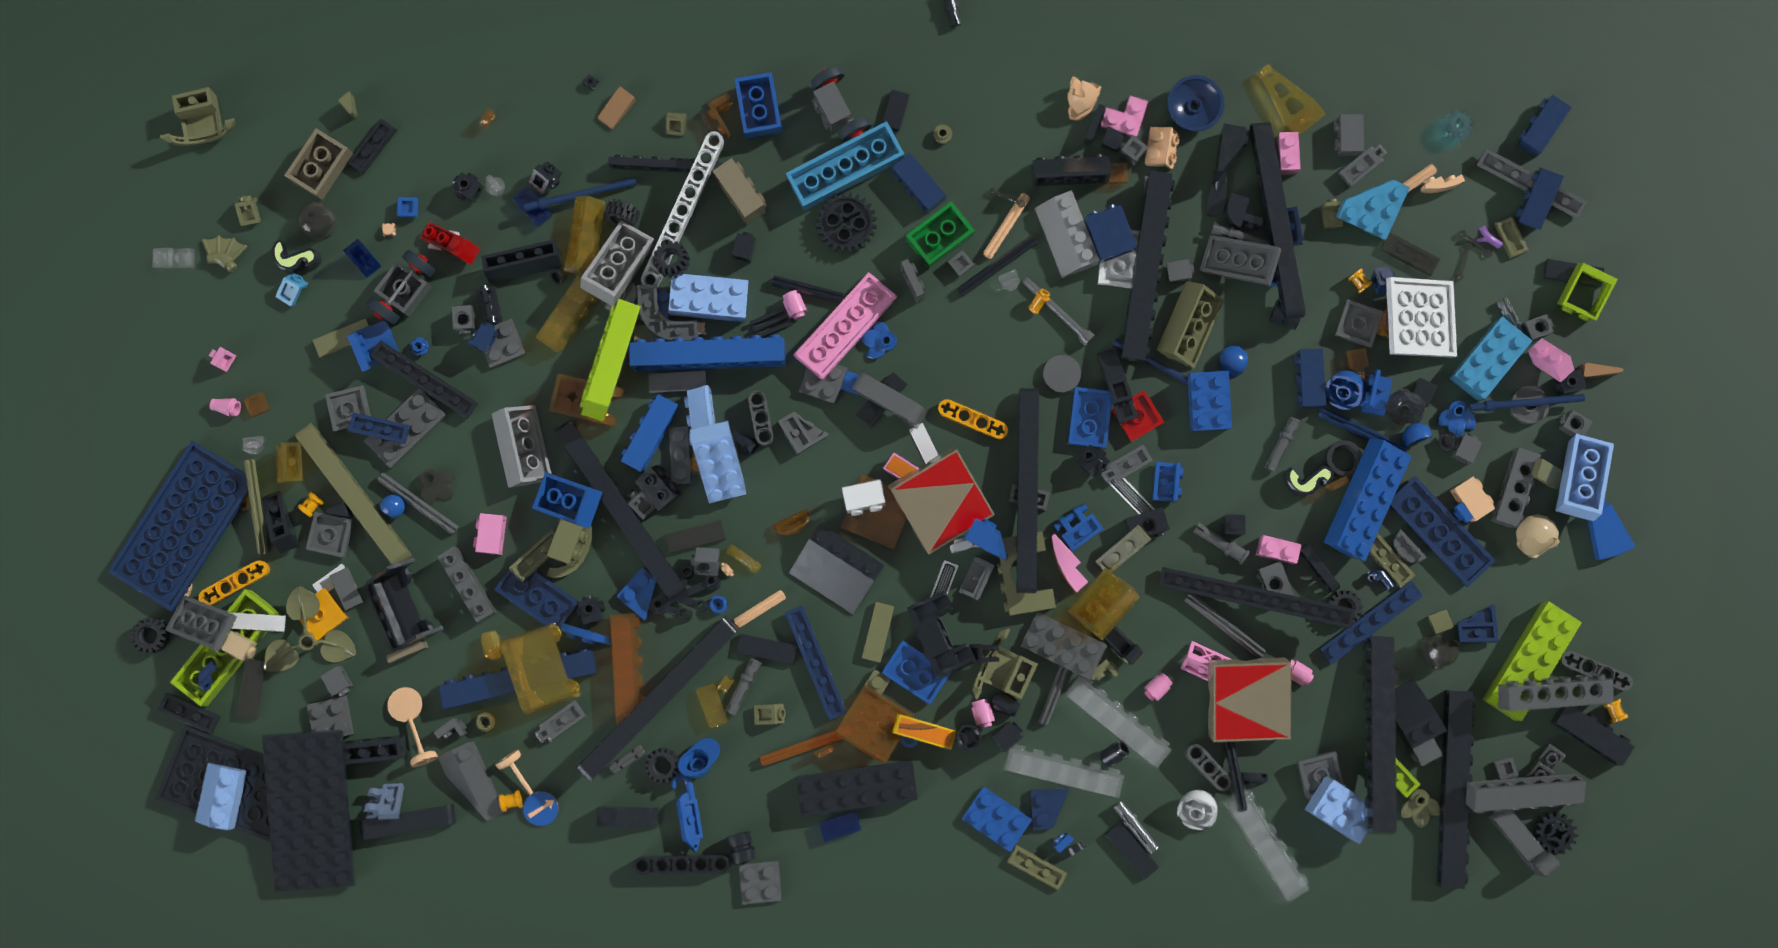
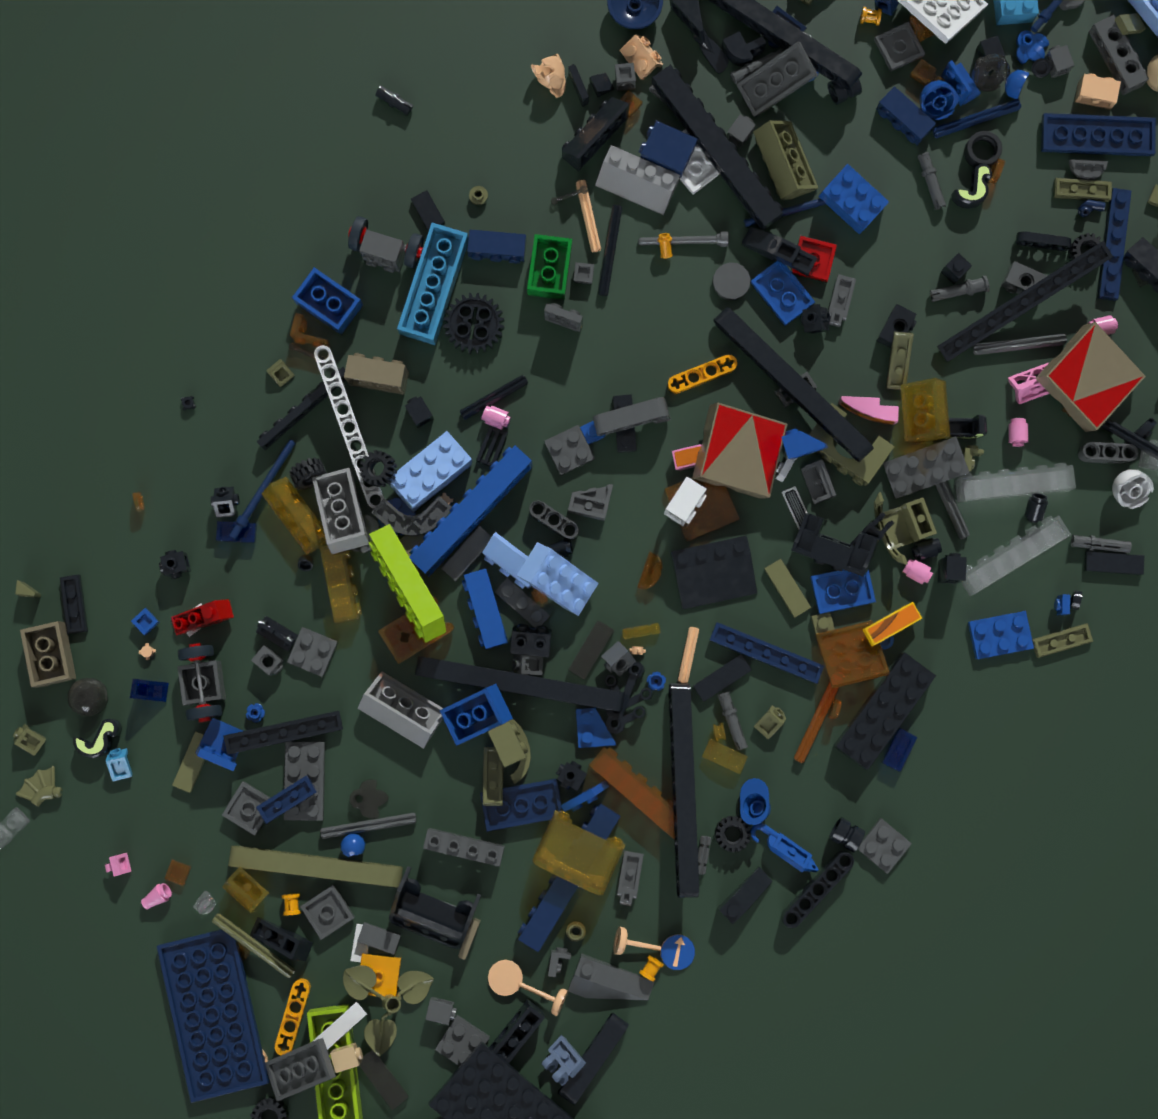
camera: 45 degrees left, 0 degrees up
(204, 676) = (342, 1104): dark blue arm -> none
(340, 510) = (318, 885): black slope -> none
(484, 337) = (297, 658): dark blue brick -> none
(490, 534) = (443, 794): bright pink brick -> none
(491, 645) = (525, 872): clear yellow brick -> none
(494, 185) = (193, 544): clear plate -> none
(522, 261) = (269, 577): black brick -> none
(616, 108) = (225, 402): medium nougat slope -> none
(845, 326) = (547, 396): bright pink tile -> none
(876, 340) = (577, 384): blue plate -> none
(923, 443) = (685, 425): white sticker -> none
(968, 737) = (925, 597): black wheel -> none
(1009, 280) = (629, 251): clear plate -> none
(1046, 806) = (1026, 592): dark blue wing -> none
(1082, 531) = (857, 376): blue plate -> none
(1127, 122) = (599, 61): bright pink plate -> none
(1131, 496) = (866, 319): sticker -> none
(1166, 482) = (881, 283): blue bracket -> none
(1233, 360) = (839, 155): blue hair -> none
(1278, 549) = (1003, 255): bright pink brick -> none
(1367, 499) = (1029, 160): blue brick -> none
(1461, 513) = (1100, 107): blue plate -> none

